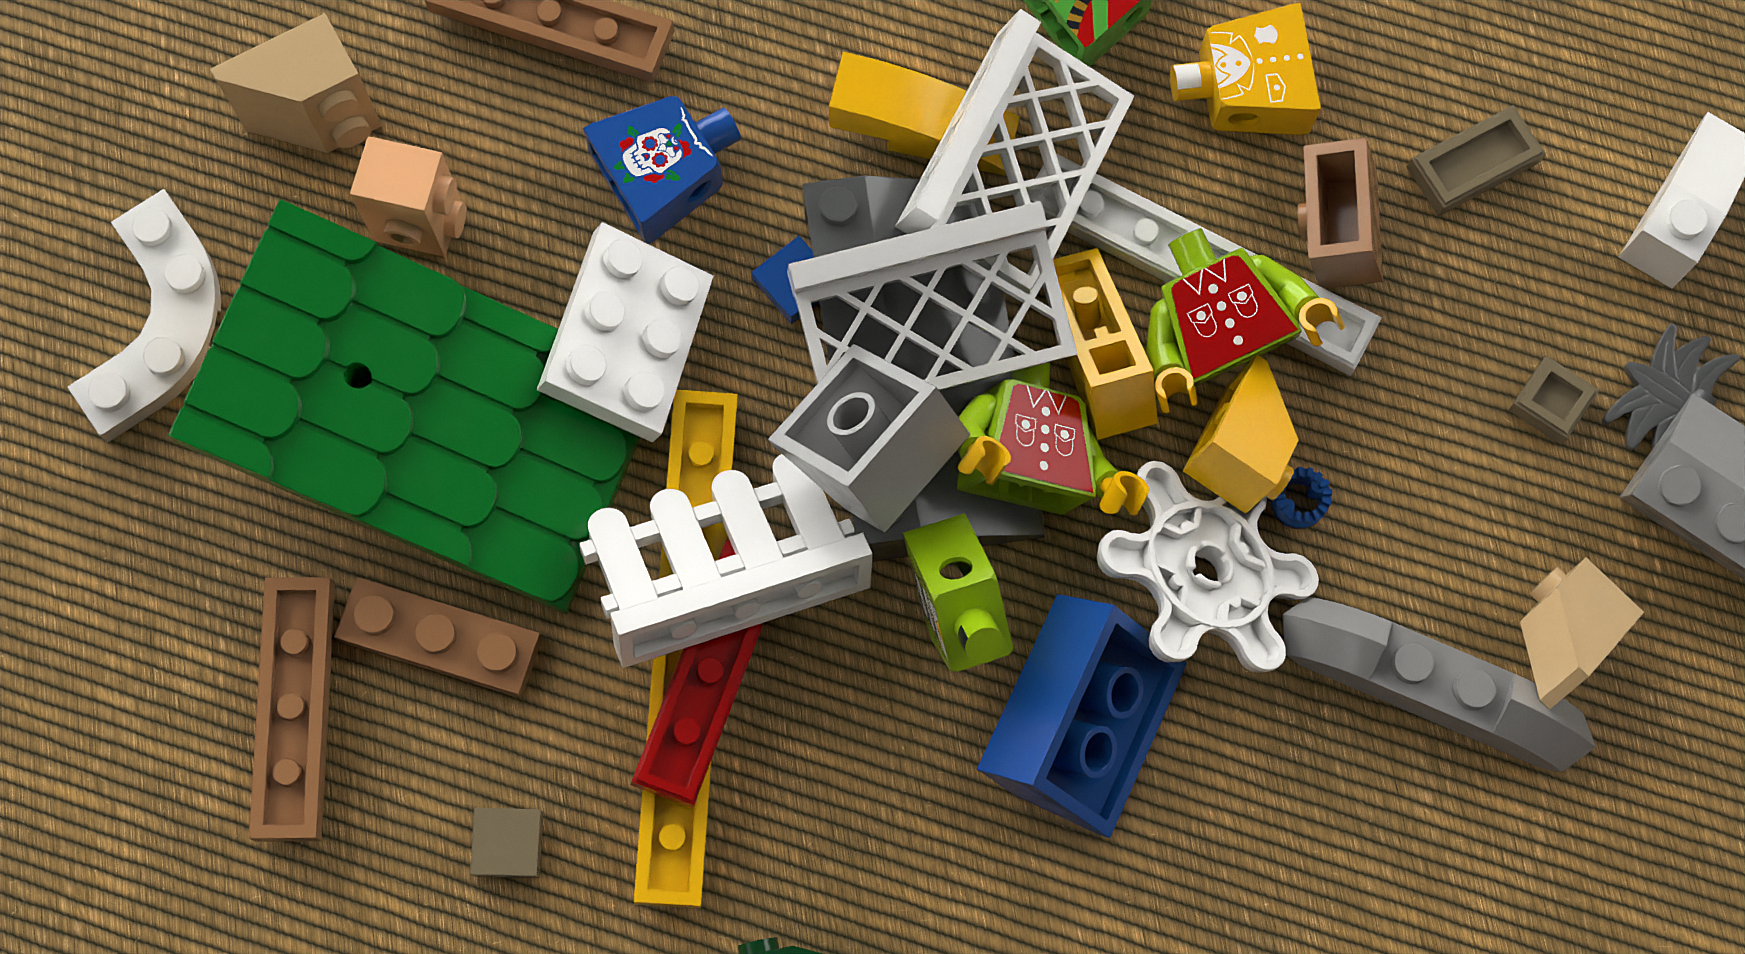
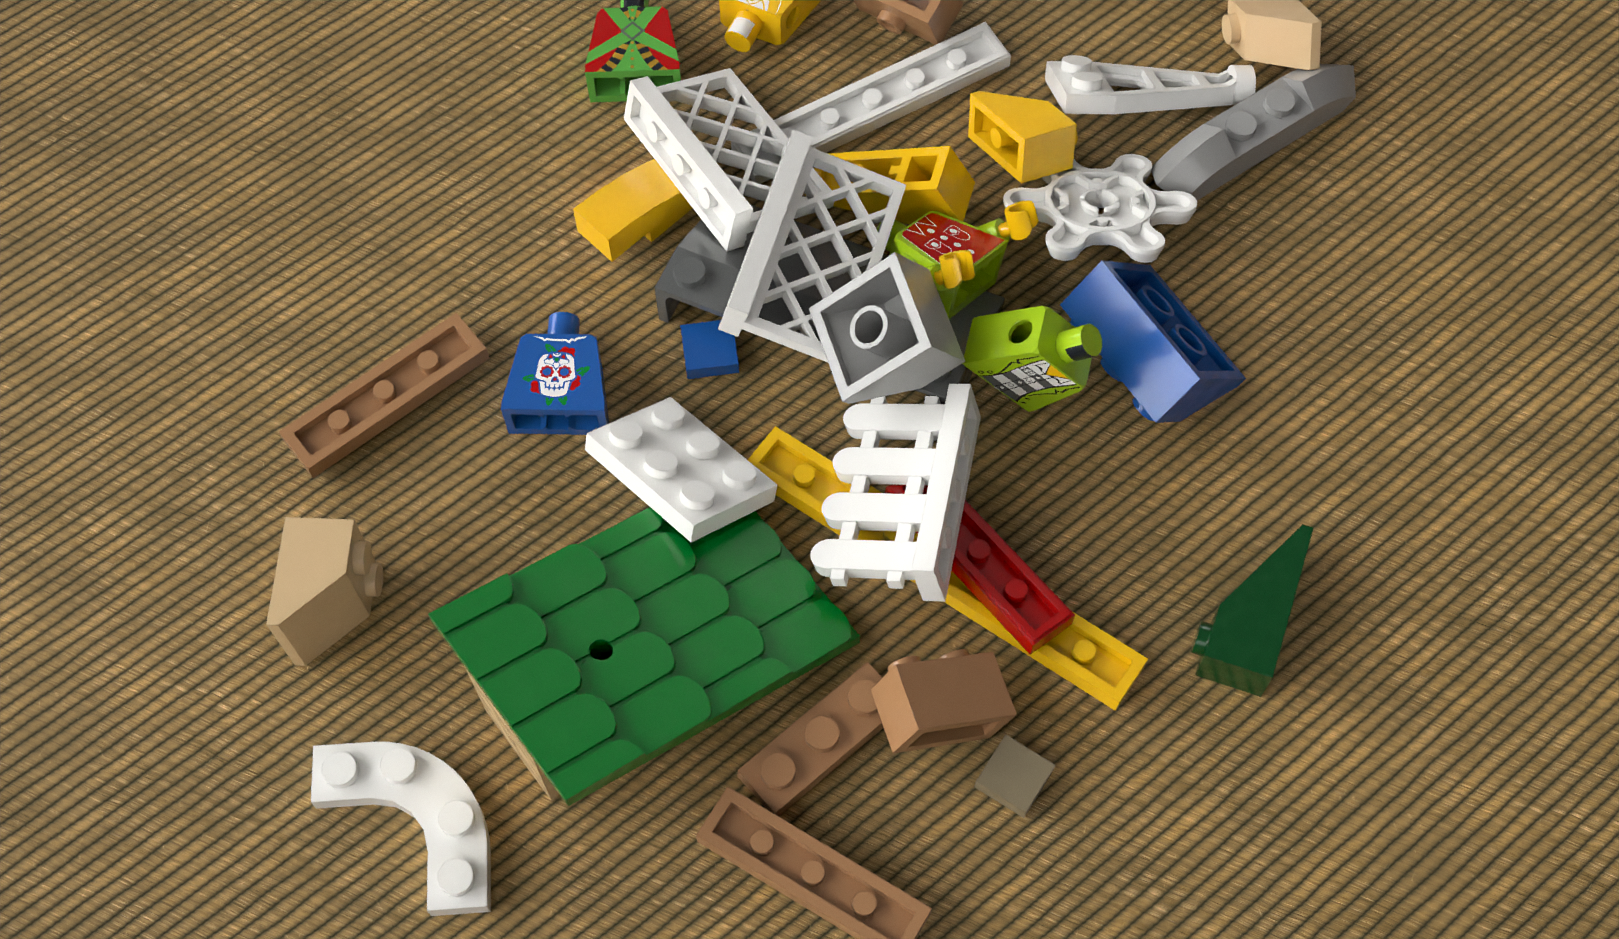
camera: 55 degrees left, 10 degrees down
(408, 197) = (464, 549): light nougat brick -> none
(527, 727) = (942, 700): none -> medium nougat brick
(1225, 315) = (932, 90): torso -> none
(1316, 489) = (1085, 123): blue bush -> none
(1371, 457) = (1086, 89): none -> white plate

